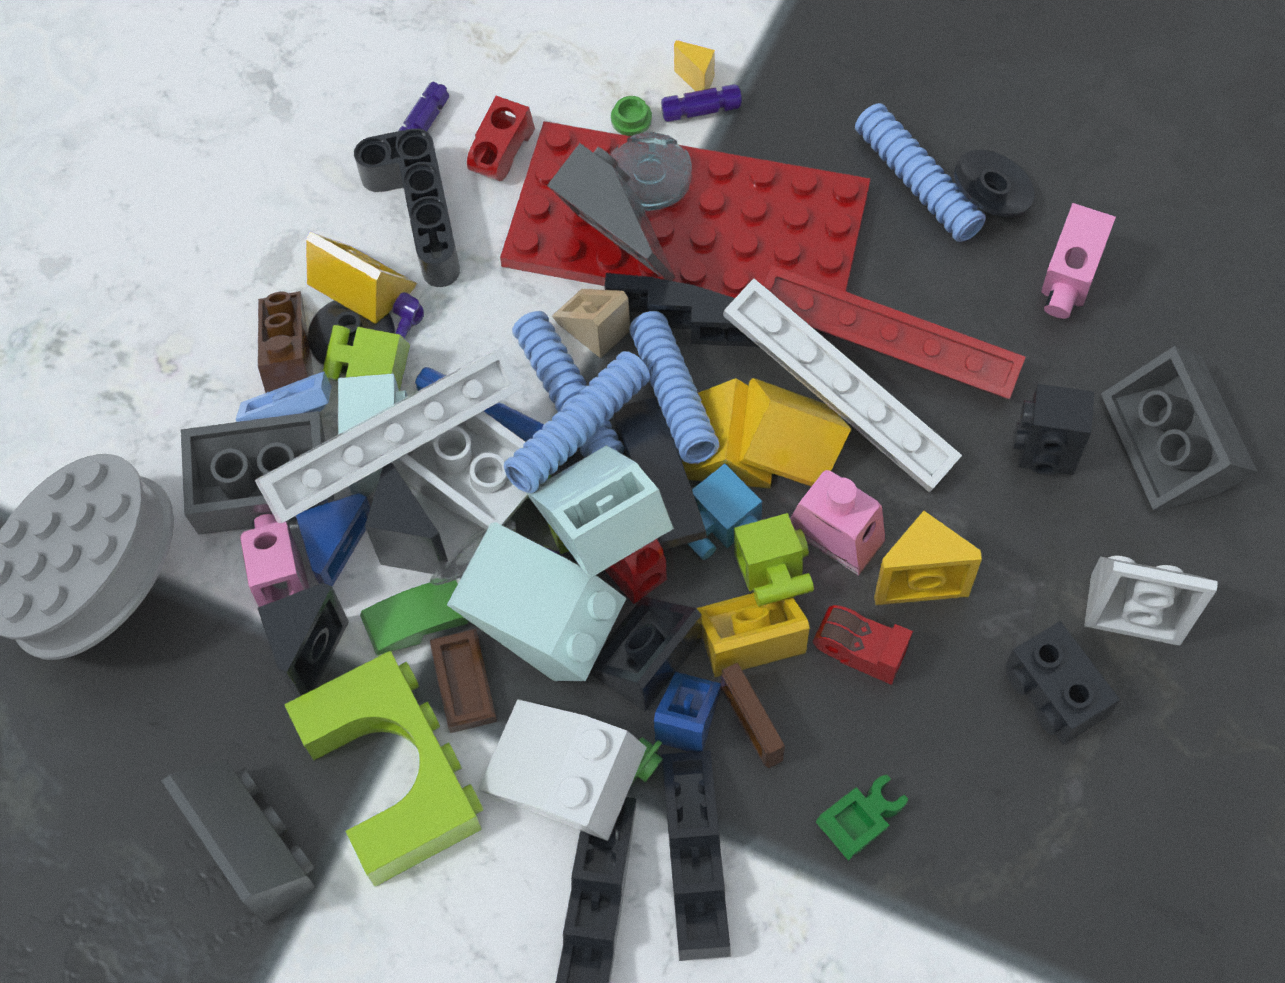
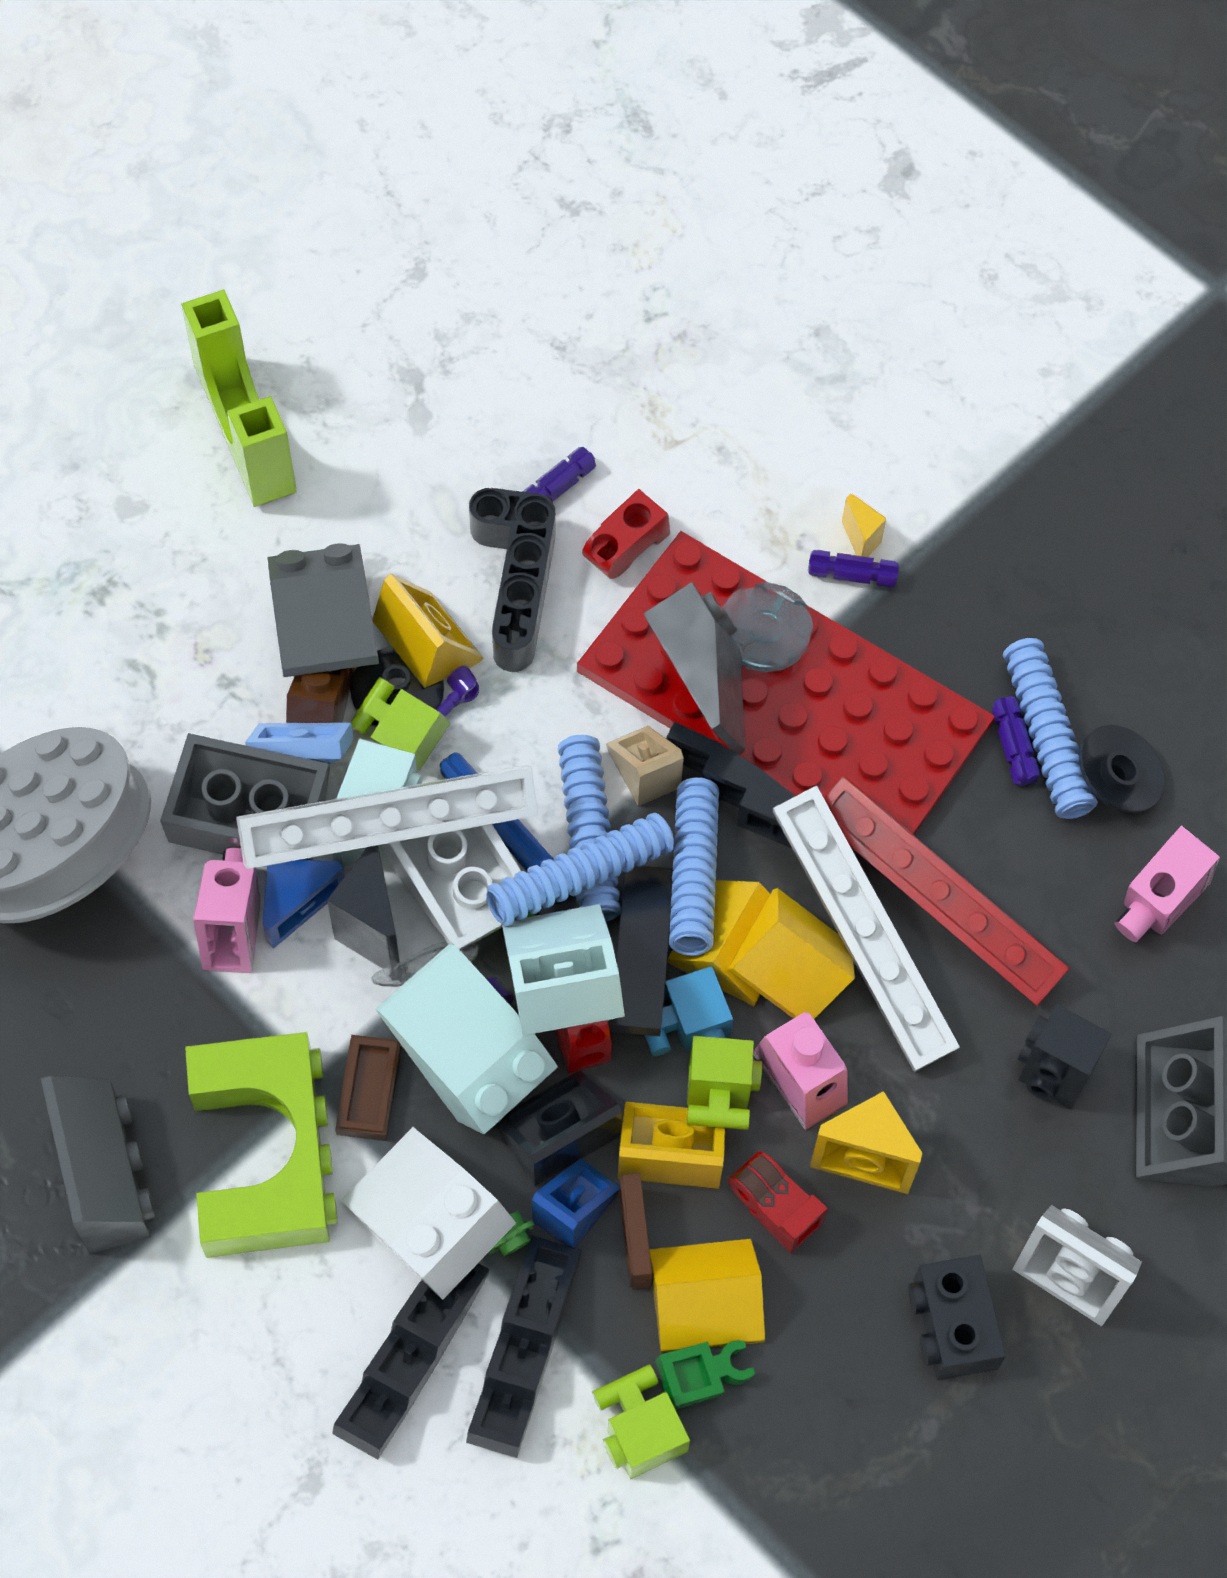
camera: 15 degrees right, 0 degrees up
(135, 156) = (248, 424): none -> lime arch
(260, 285) = (322, 610): none -> dark grey slope
(304, 634) = (229, 985): black slope -> none
(409, 616) = (339, 1004): bright green slope -> none
(631, 116) = (774, 557): bright green plate -> none
(834, 887) = (646, 1431): none -> lime brick
(838, 747) = (707, 1294): none -> yellow slope
(895, 193) = (1015, 741): none -> dark purple axle

